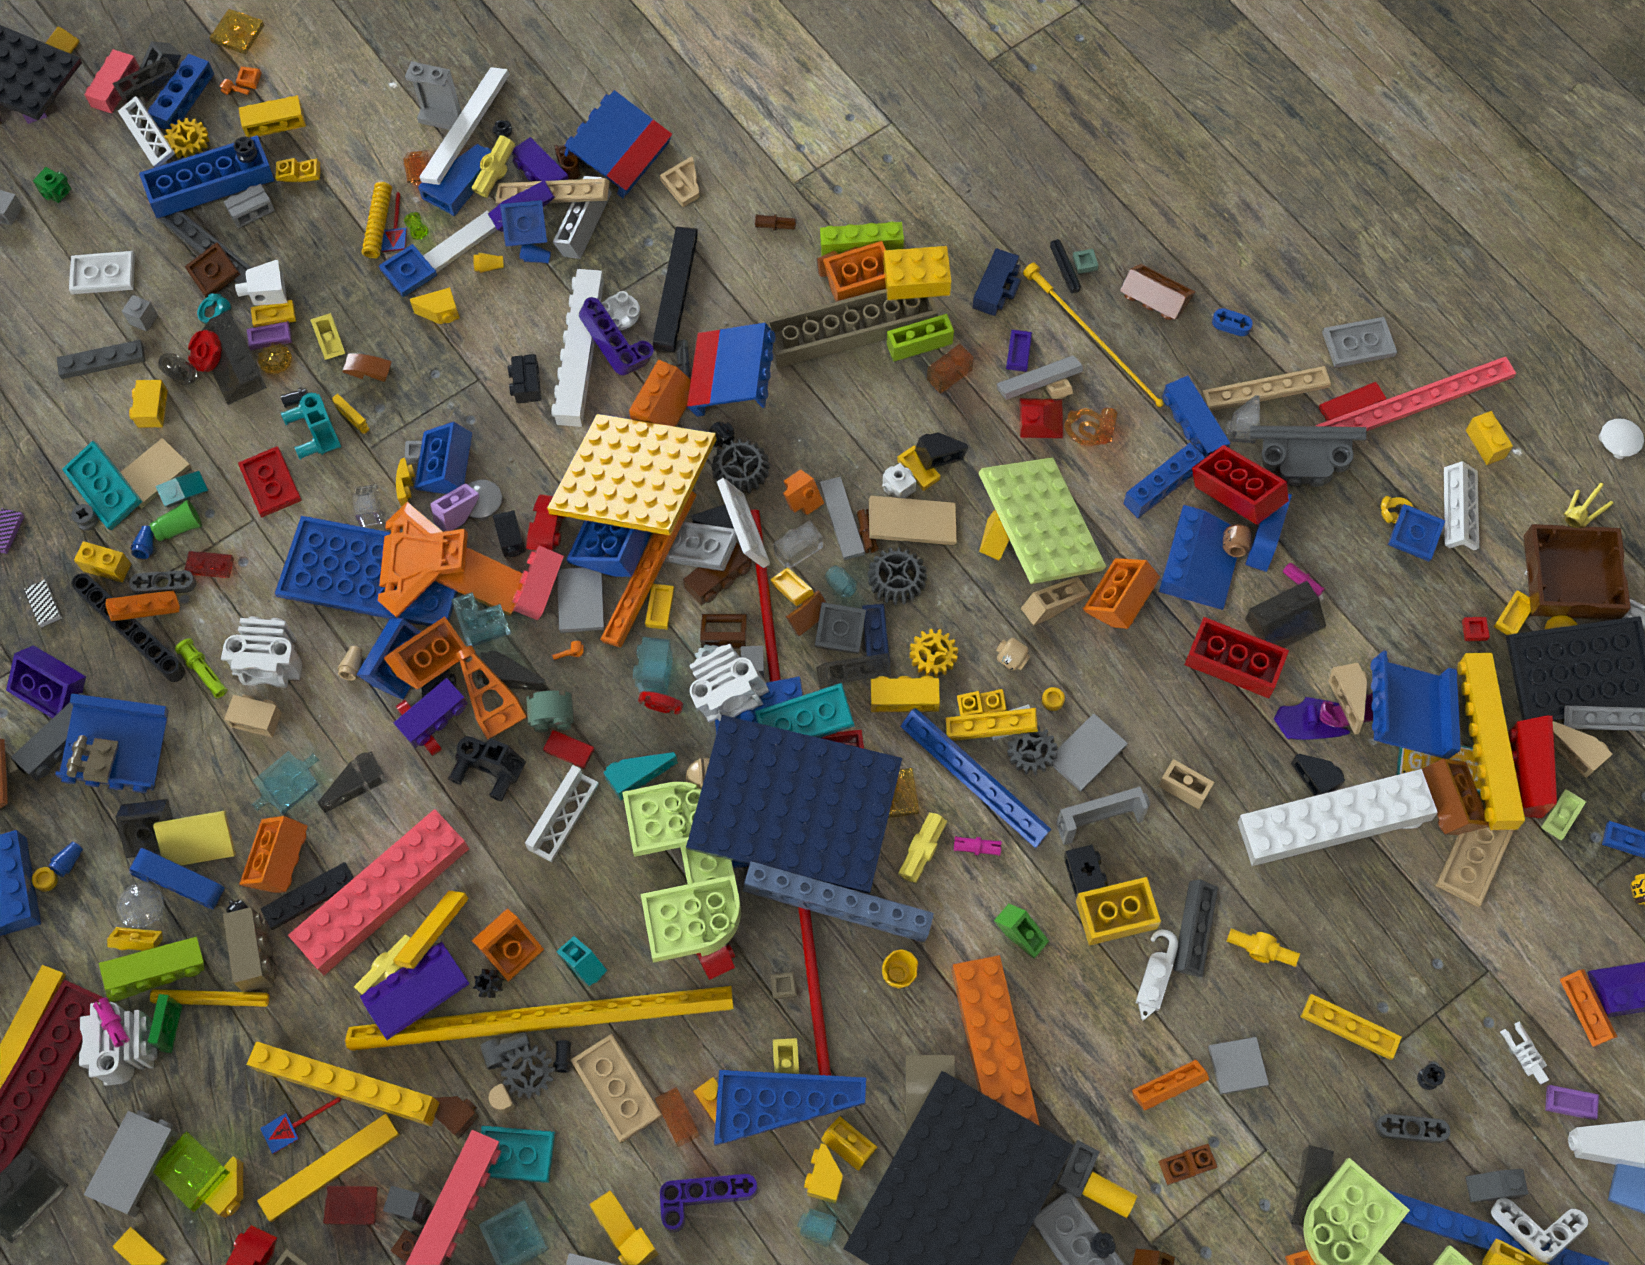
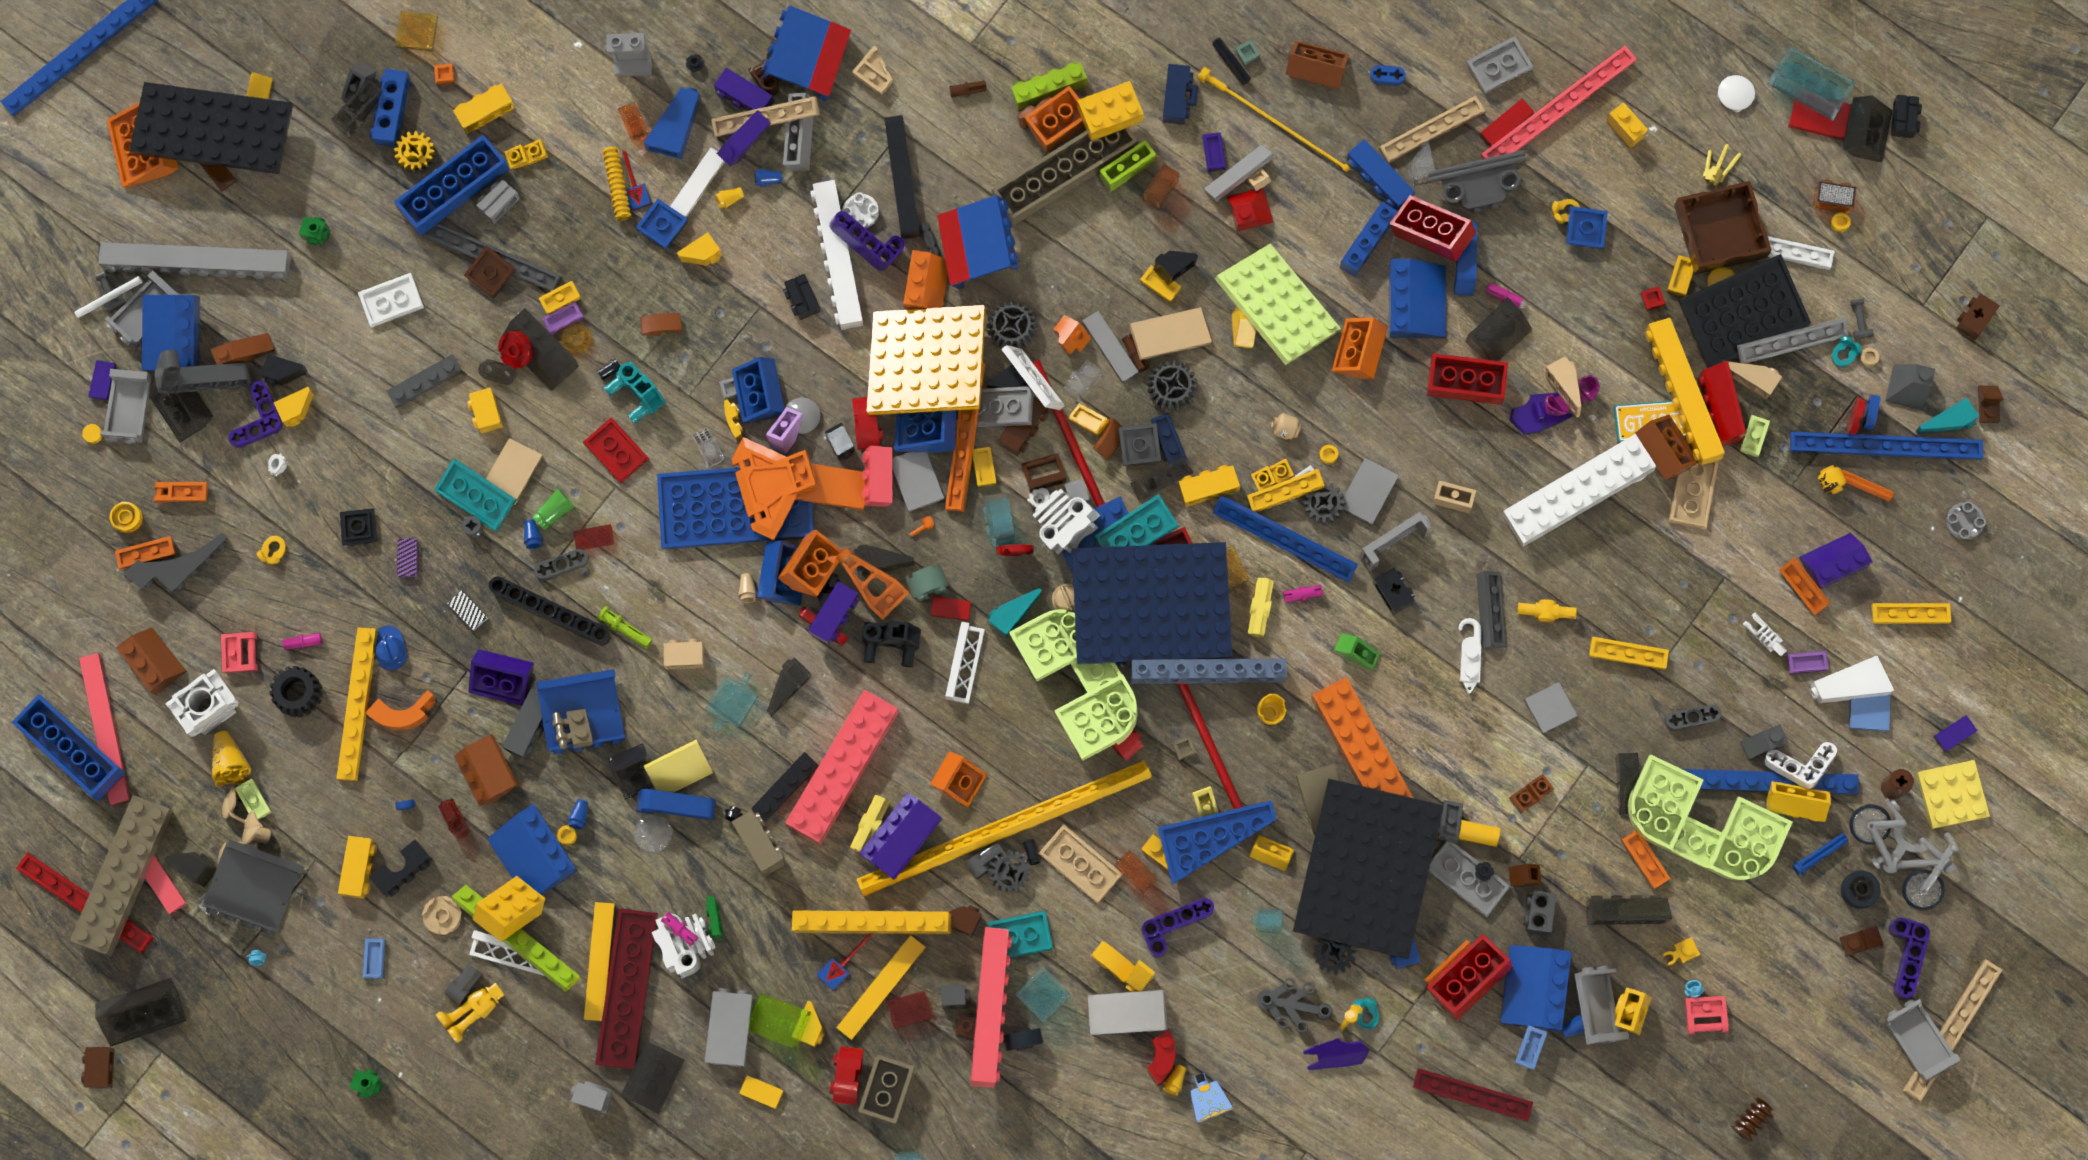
camera: 15 degrees left, 10 degrees up
(101, 92) = (323, 108): coral brick -> none
(102, 561) = (505, 561): yellow brick -> none
(134, 939) = (661, 861): yellow plate -> none
(139, 313) = (443, 330): light grey brick -> none
(142, 605) = (556, 590): orange plate -> none
(143, 135) = (376, 161): white fence -> none
(150, 968) = (685, 880): lime wedge -> none
(181, 488) = (546, 479): teal slope -> none
(214, 997) = (739, 888): yellow axle -> none
(222, 305) = (512, 302): teal piece -> none
(227, 86) = (429, 89): orange hand -> none
(245, 149) = (479, 149): black wheel -> none
(263, 653) = (674, 597): white piece -> none
(264, 284) = (544, 274): white torso -> none
(274, 854) = (745, 762): orange slope -> none
(328, 336) = (618, 307): light yellow slope -> none
(350, 414) = (663, 371): yellow tile -> none
(416, 225) = (653, 179): clear neon green bush -> none
(430, 929) = (895, 785): yellow tile -> none
(464, 126) = (662, 71): white tile -> none
(479, 625) = (841, 527): clear light blue brick -> none
(493, 166) = (704, 105): light yellow piece -> none
(494, 985) = (948, 813): black gear -> none
(501, 1100) = (996, 898): tan brick -> none
(523, 223) = (753, 156): blue plate -> none
(582, 961) = (1021, 775): teal slope -> none
(723, 432) = (987, 299): black gear -> none
(826, 1176) = (1263, 883): yellow slope -> none
(841, 581) = (1127, 403): clear light blue brick -> none
(899, 481) = (1149, 302): white brick -> none
(925, 651) = (1229, 443): yellow gear -> none
(1053, 600) = (1307, 370): tan slope -> none
(1104, 430) = (1306, 211): clear orange piece -> none
(1118, 911) = (1427, 615): yellow brick -> none
(1170, 1085) = (1503, 738): orange plate -> none
(1237, 540) = (1442, 277): medium nougat head -> none
(1318, 774) = (1556, 458): black slope -> none
(1415, 708) = (1619, 382): blue panel -> none
(1430, 1084) = (1696, 669): black bush -> none
(1459, 506) = (1616, 193): white fence -> none

